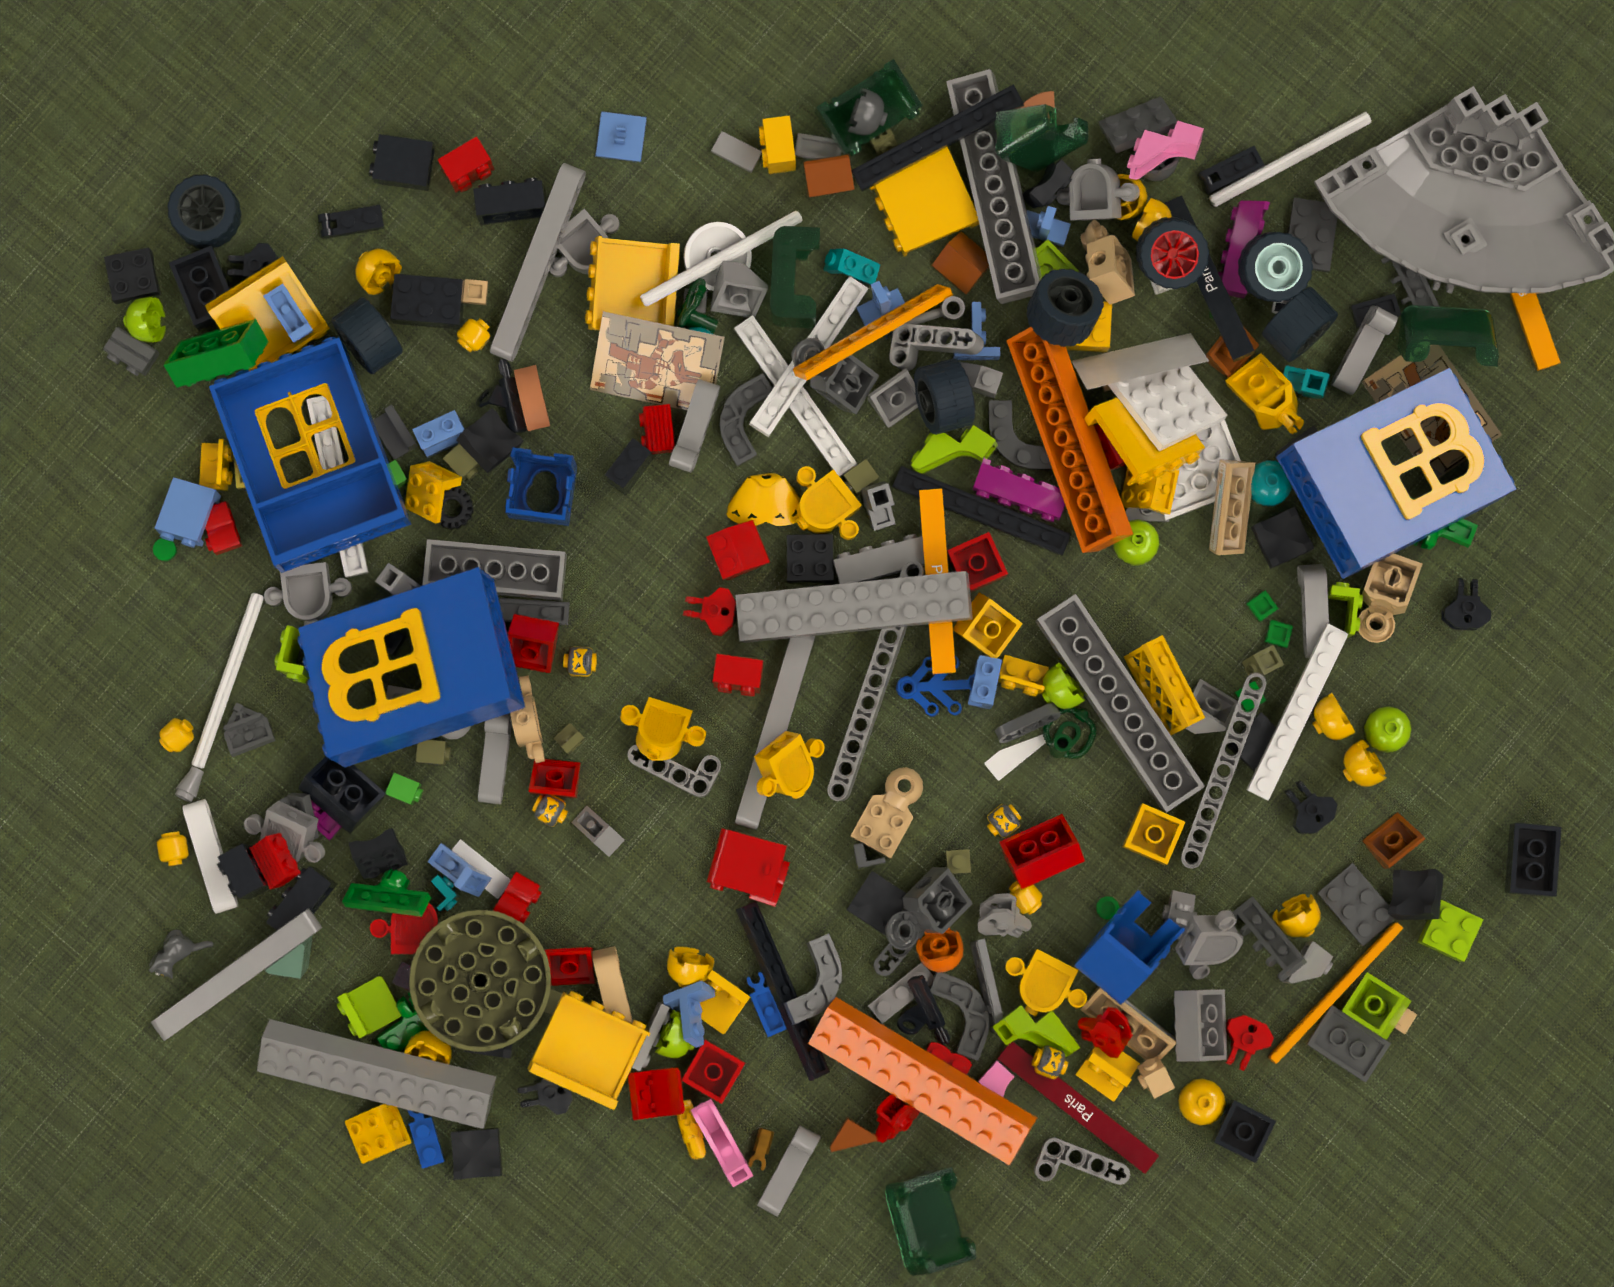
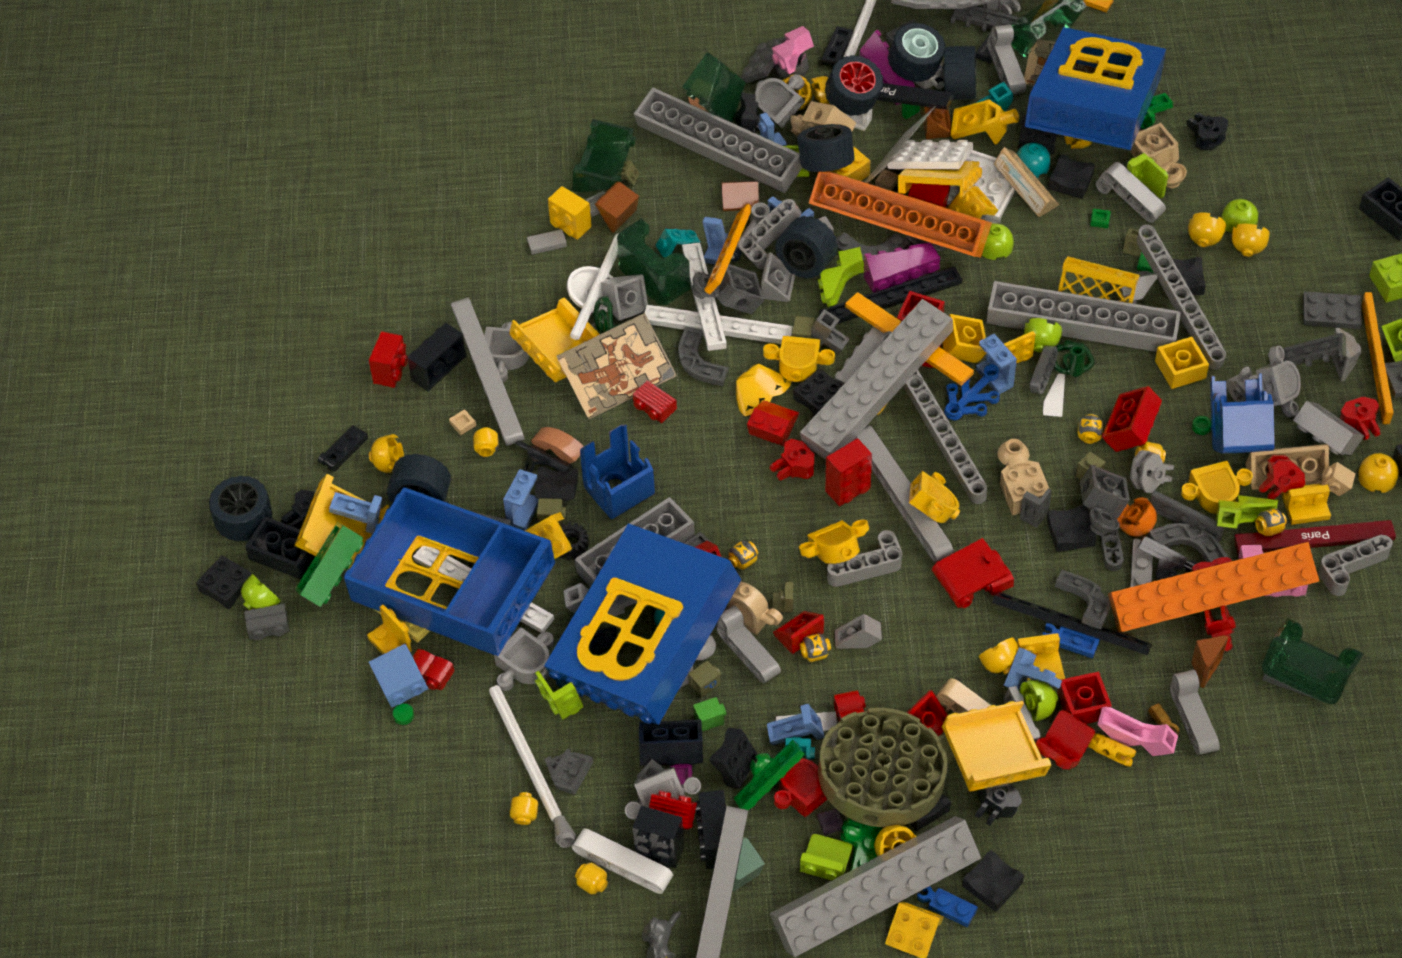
camera: 40 degrees left, 30 degrees down
(402, 162) = (345, 392): black brick -> none
(427, 301) = (442, 440): black brick -> none
(621, 136) = (468, 284): medium blue piece -> none
(629, 466) = (659, 426): black brick -> none
(695, 426) = (675, 379): light grey beam -> none
(867, 113) = (605, 158): dark grey cylinder -> none
(925, 202) = (680, 179): yellow panel -> none
(936, 138) = (658, 139): black tile -> none
(1278, 634) = (1125, 222): green tile -> none
(1297, 711) = (1184, 240): white plate -> none
(1298, 917) = (1311, 330): yellow cylinder -> none
(1306, 810) = (1249, 282): black hinge -> none
(1393, 840) = (1312, 262): dark orange slope -> none
(1416, 894) = (1357, 270): black brick -> none

